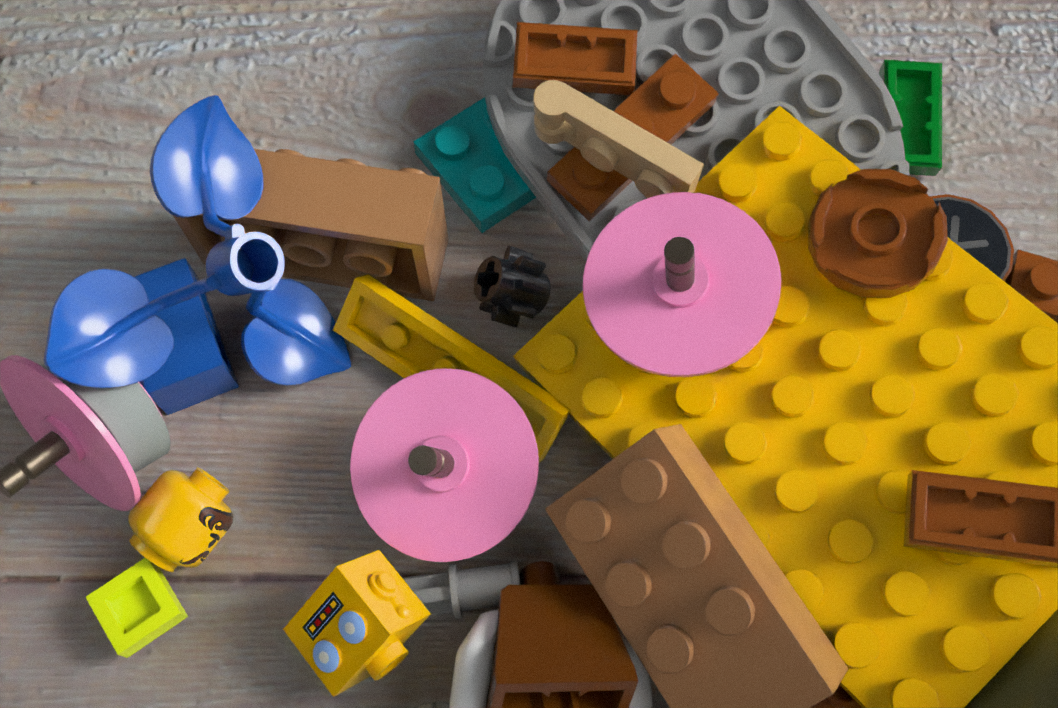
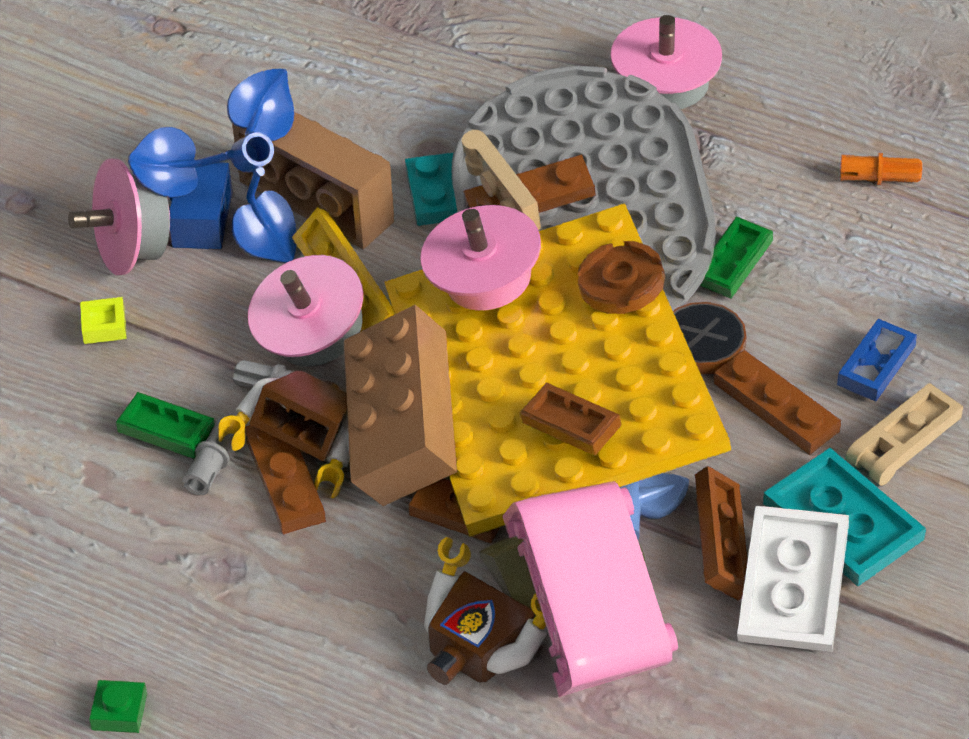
camera: 30 degrees right, 20 degrees down
(180, 519) = (151, 287): yellow head -> none
(357, 623) = (213, 362): yellow head -> none
(512, 286) = (405, 249): black gear -> none
(577, 55) = (520, 135): dark orange plate -> none

